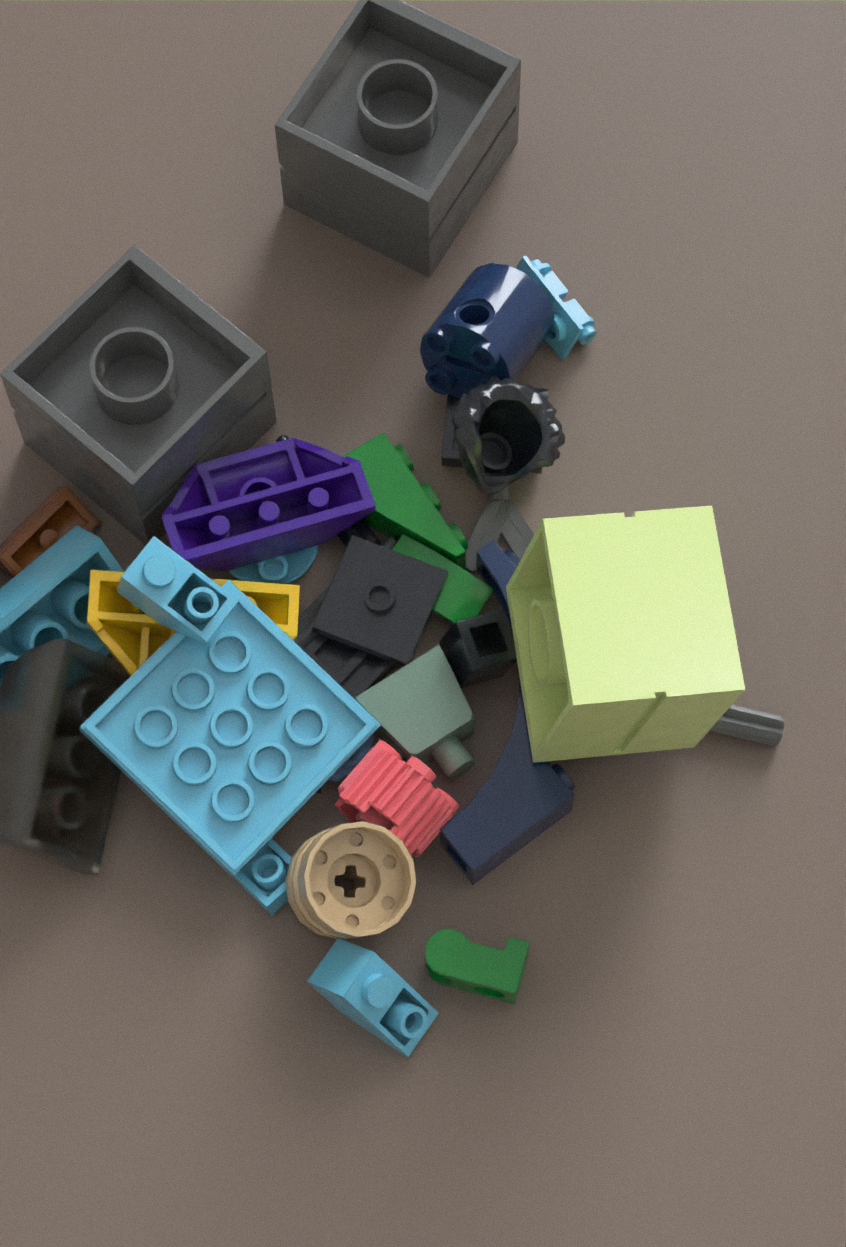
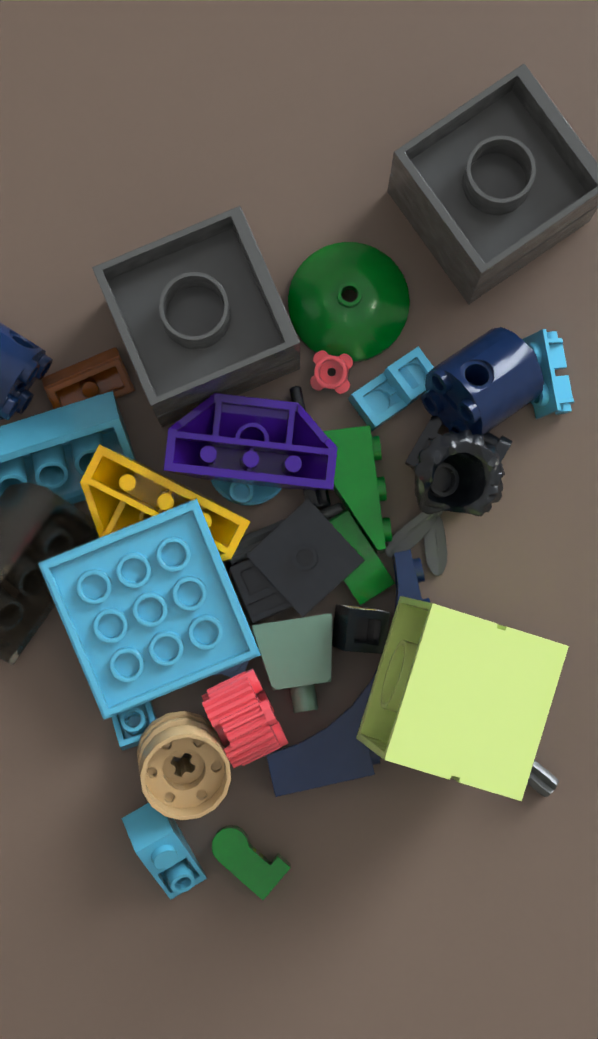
camera: 25 degrees right, 15 degrees up
(175, 592) = (151, 499): medium azure slope -> none
(308, 352) = (356, 327): none -> green dish
(317, 392) = (324, 362): none -> coral plate
(392, 394) = (393, 389): none -> medium azure slope

